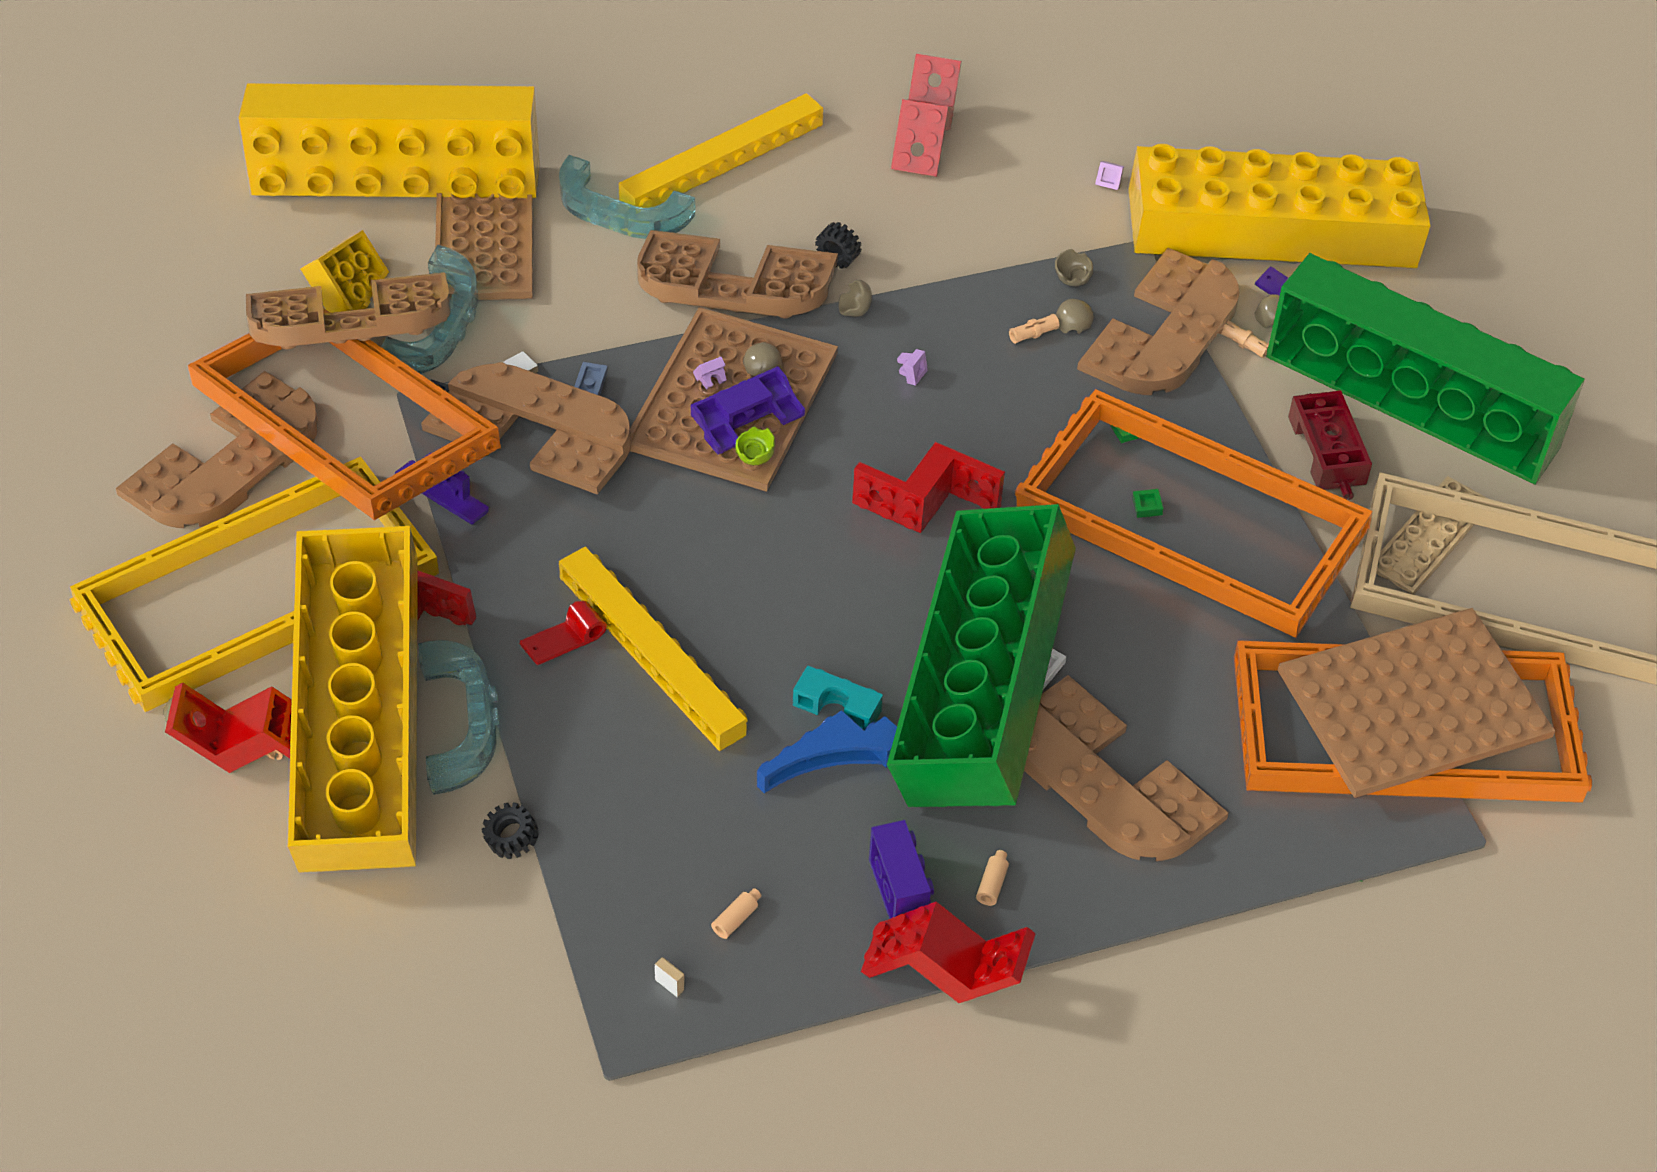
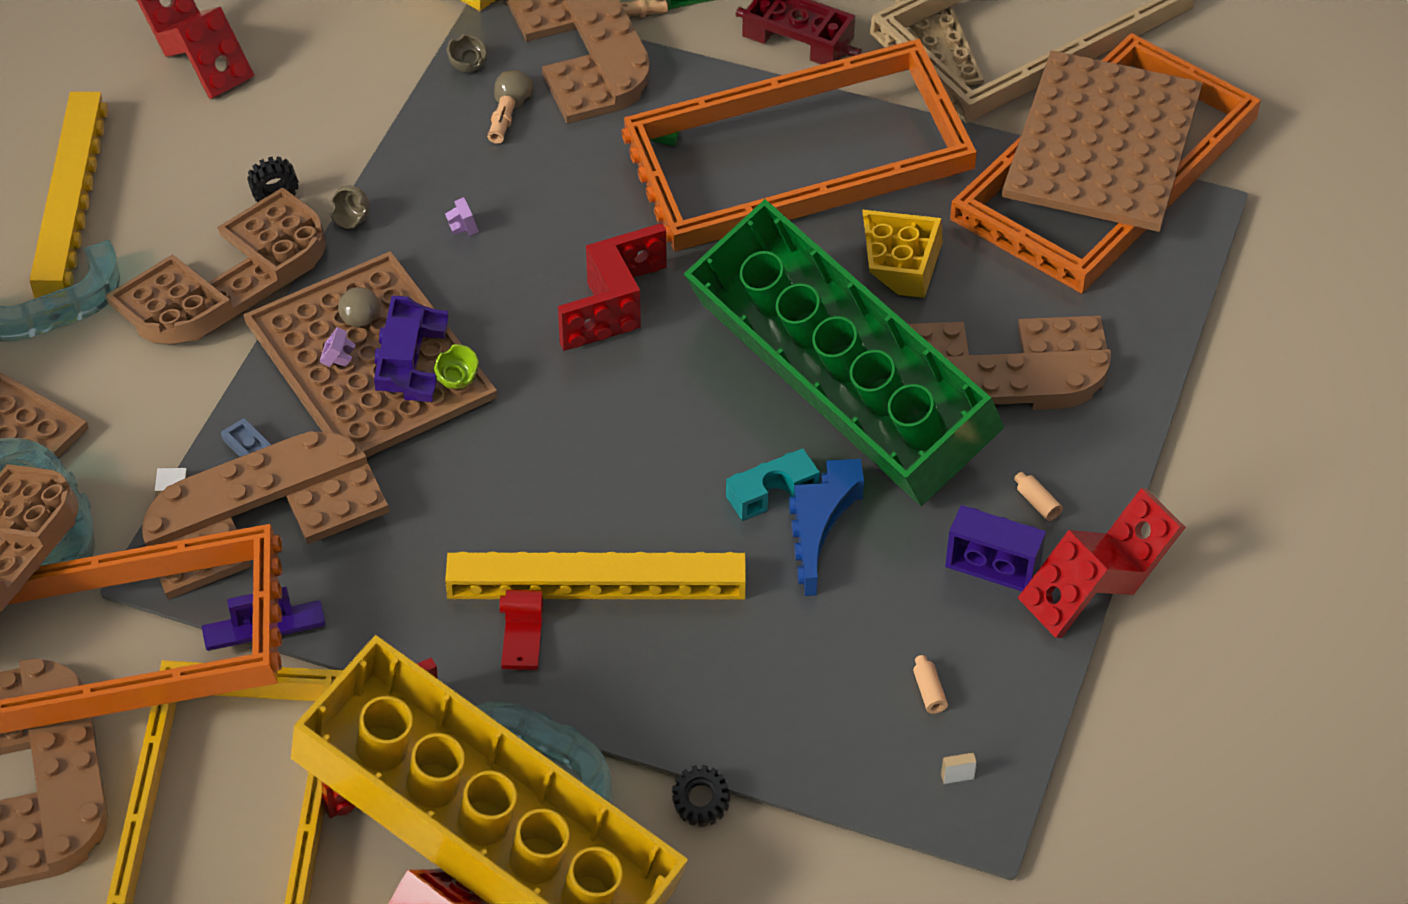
camera: 50 degrees left, 0 degrees up
(1147, 503) = (755, 168): green plate -> none
(1153, 641) = (902, 250): none -> yellow wedge

